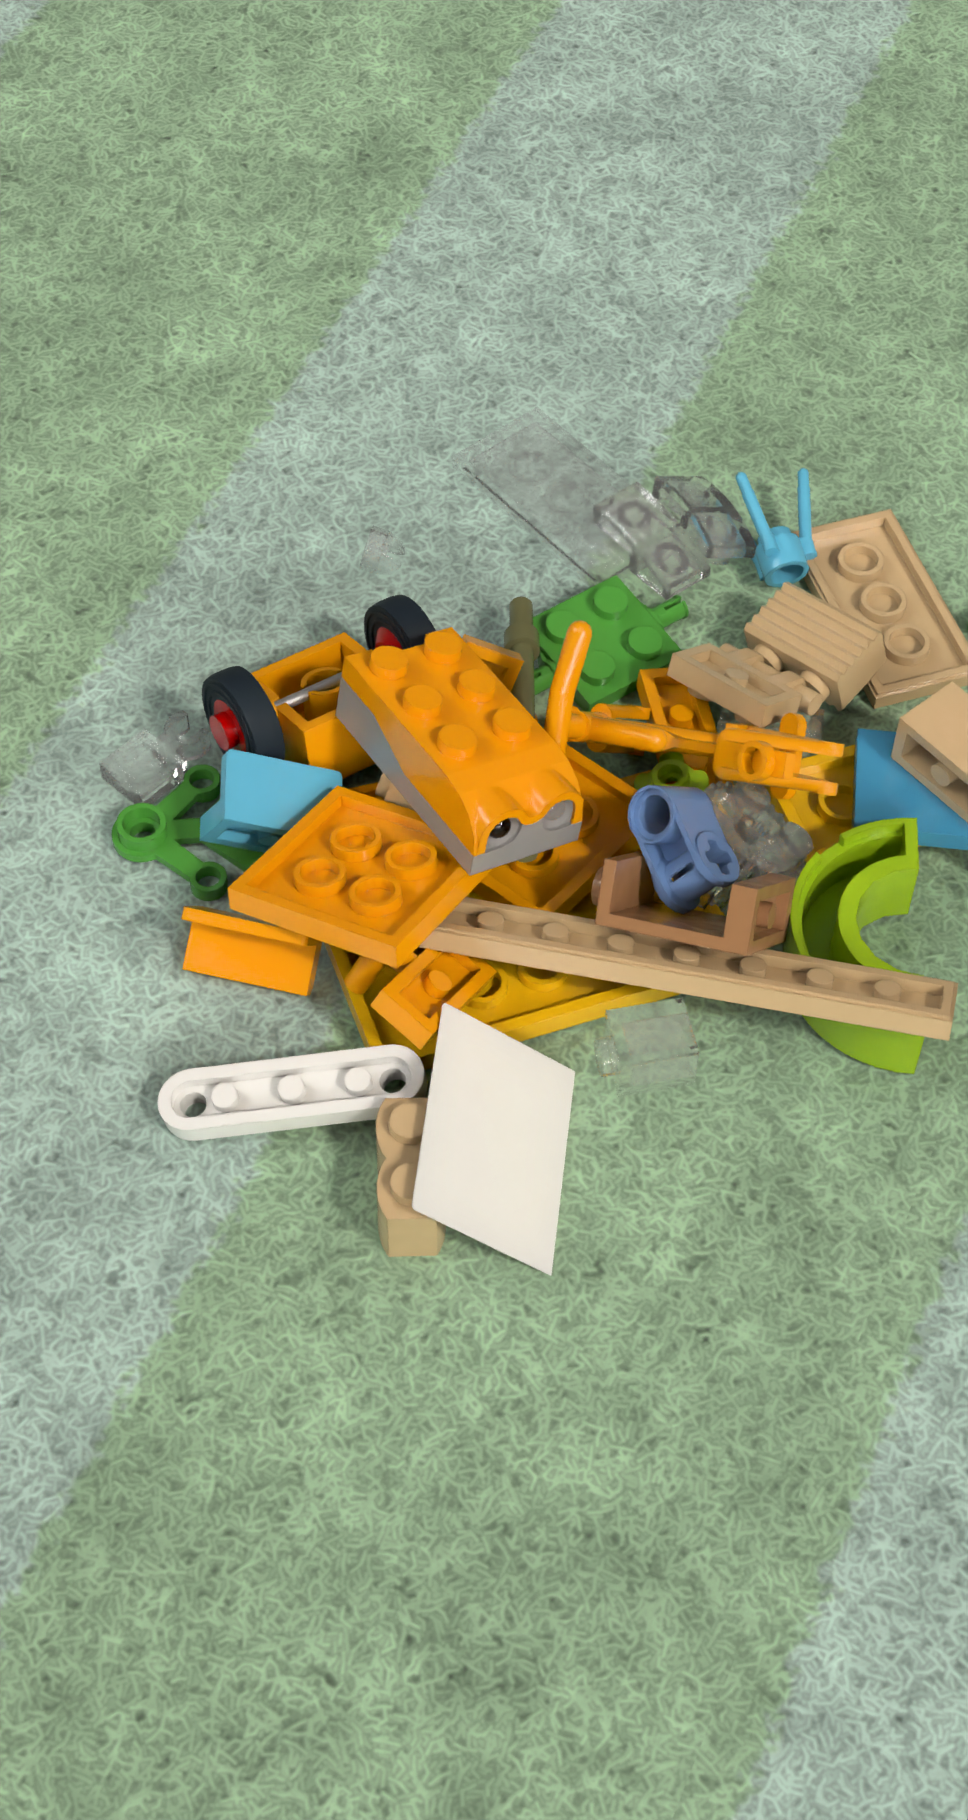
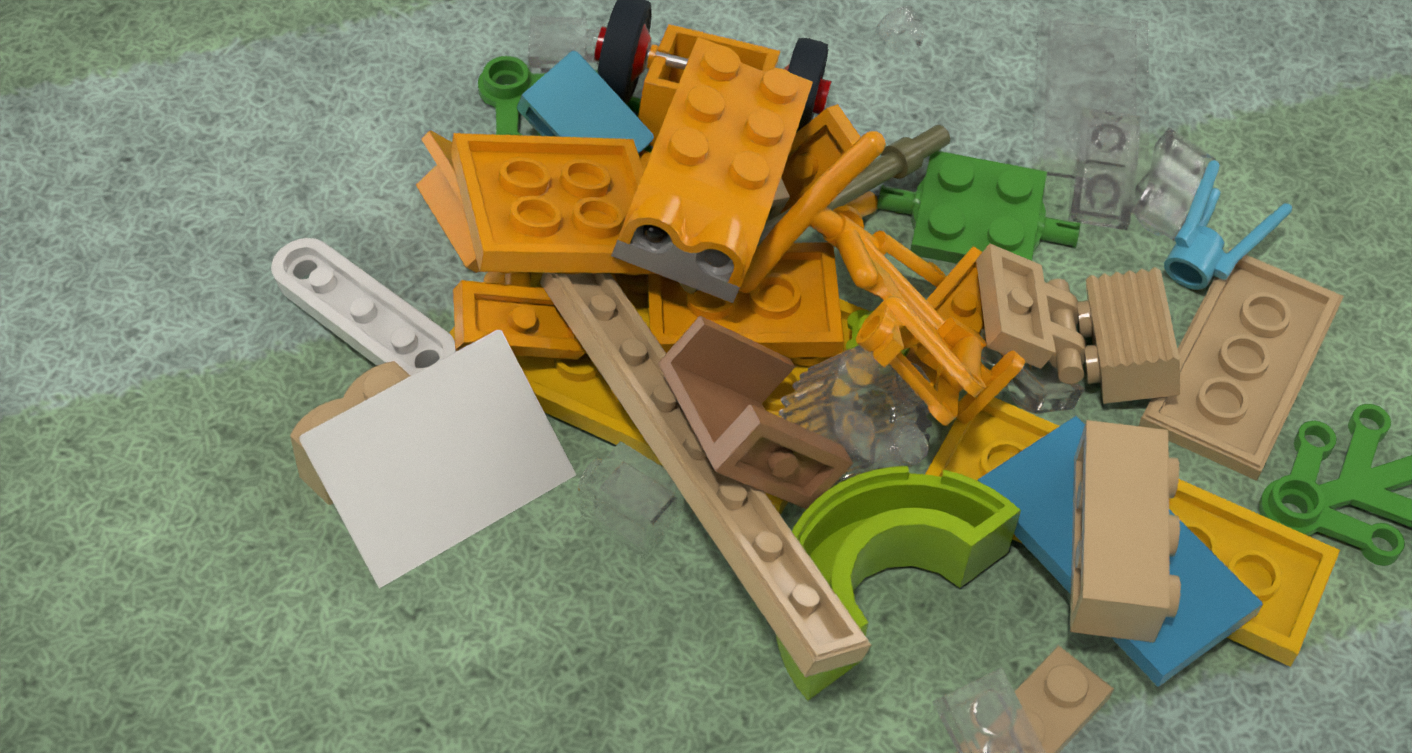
camera: 45 degrees right, 0 degrees up
(682, 843) = (793, 360): medium blue piece -> none

